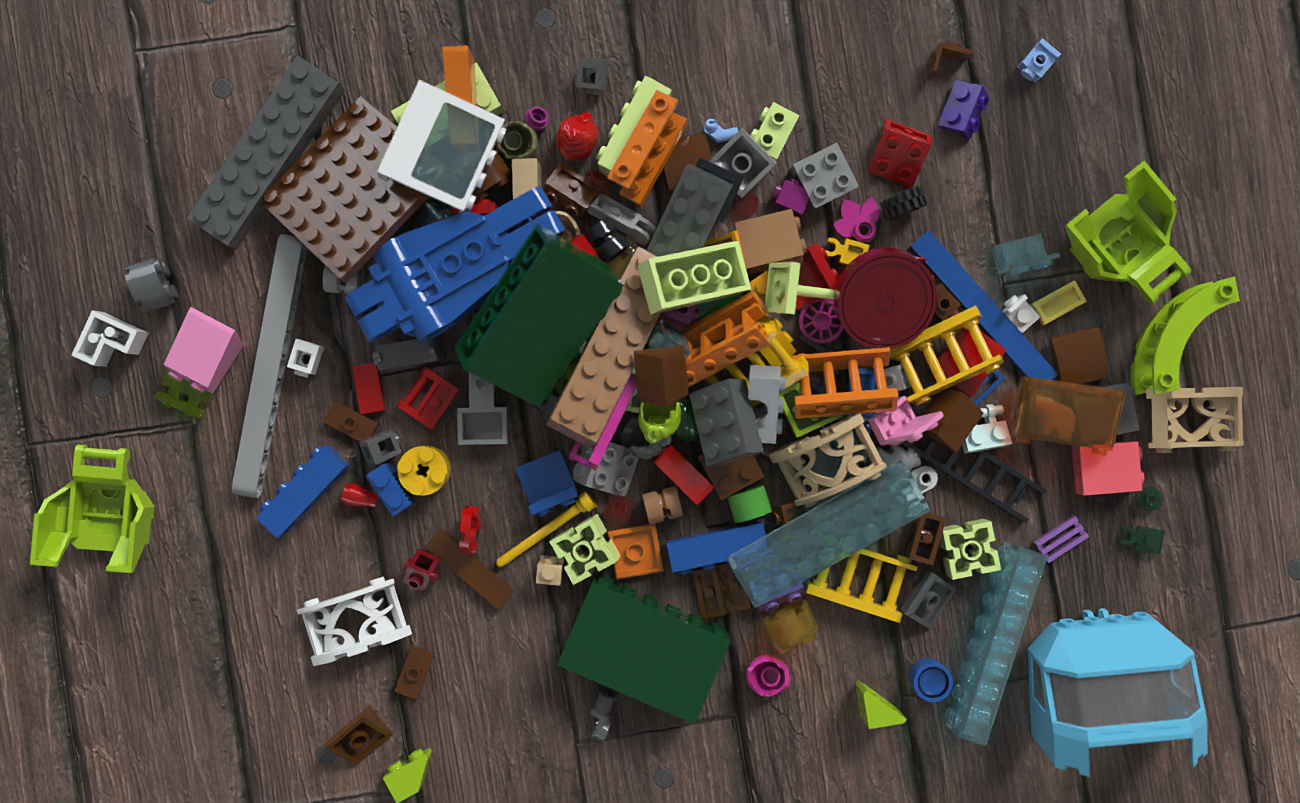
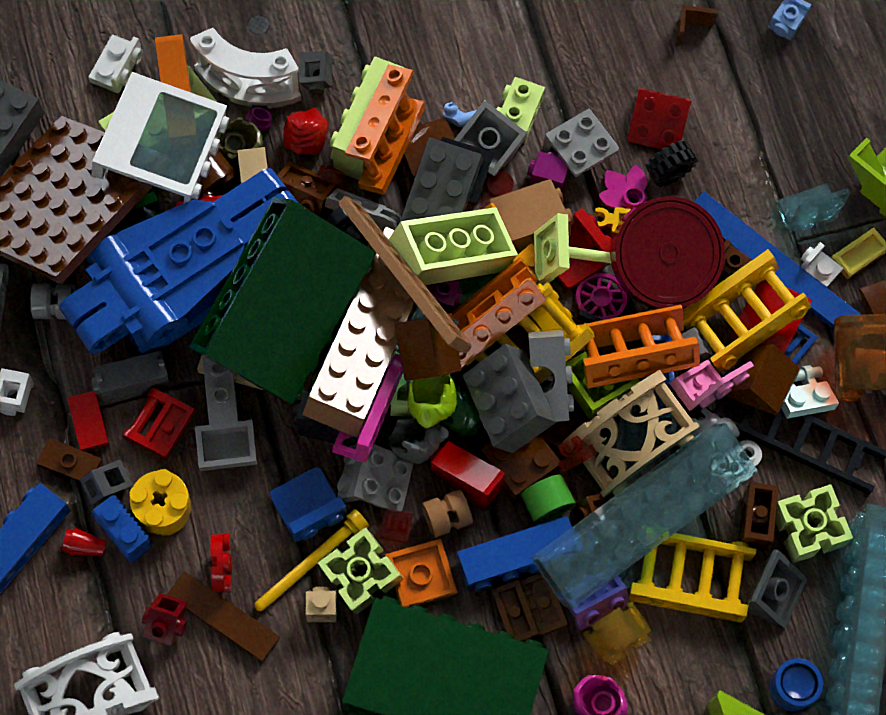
camera: 15 degrees left, 20 degrees down
(412, 47) = (116, 63): none -> white bracket
(525, 79) = (244, 75): none -> white fence
(646, 311) = (405, 275): none -> medium nougat tile
(777, 473) = (575, 456): none -> clear red tile
(964, 108) = (720, 69): dark purple bracket -> none

